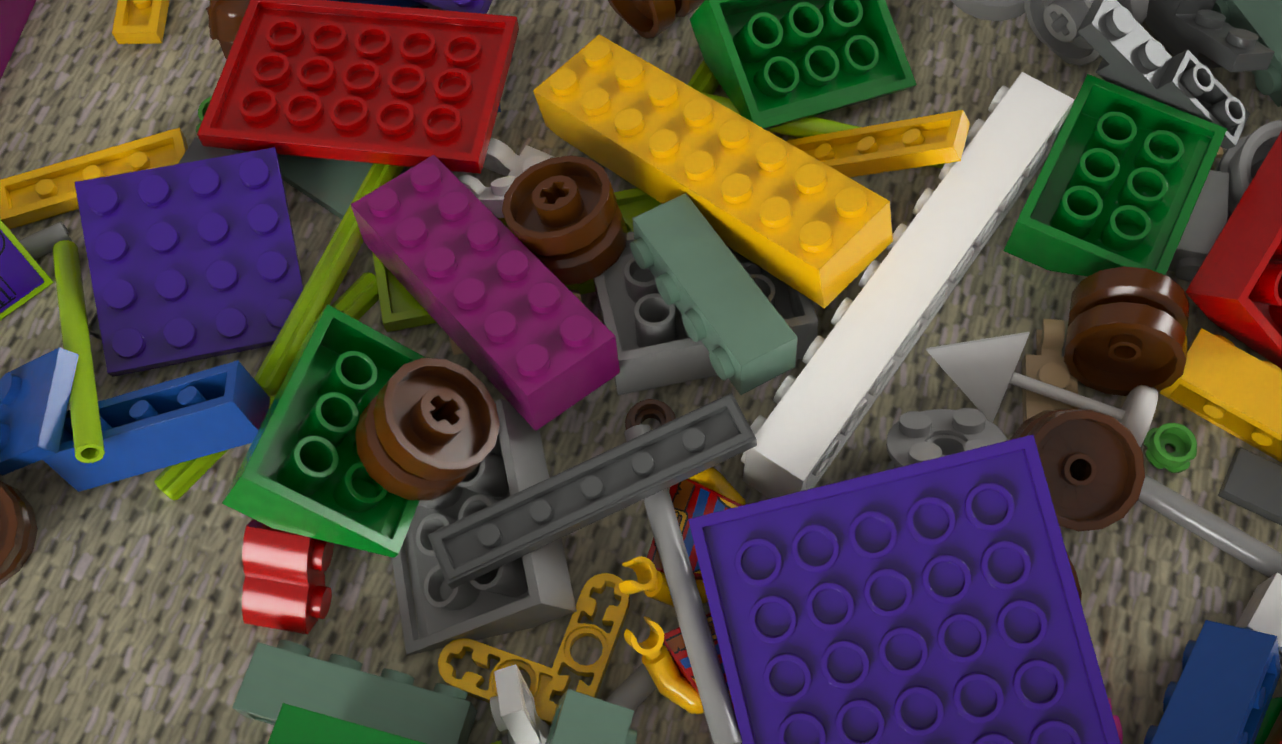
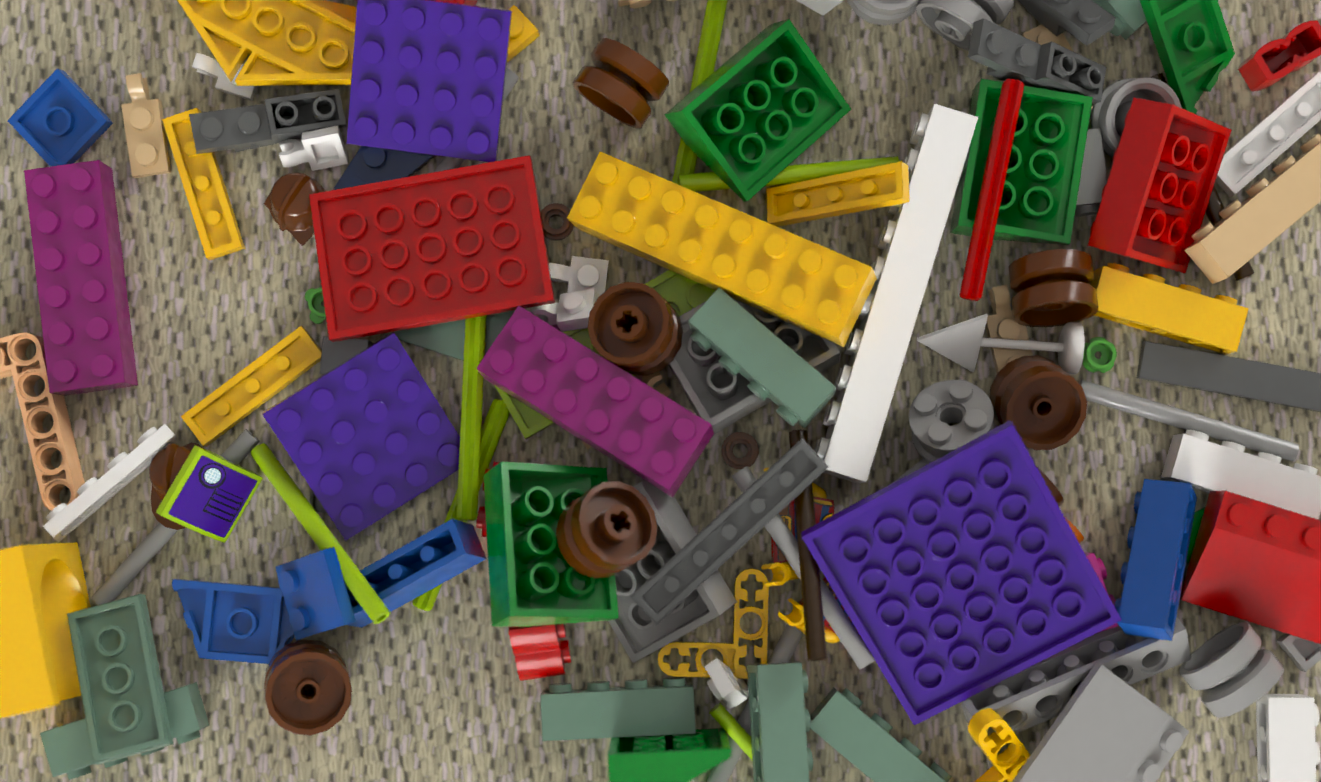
camera: 20 degrees left, 20 degrees up
(514, 98) = (556, 210): none -> reddish brown plate
(682, 592) = (809, 569): none -> dark brown piece
(1069, 193) = (991, 190): none -> red axle

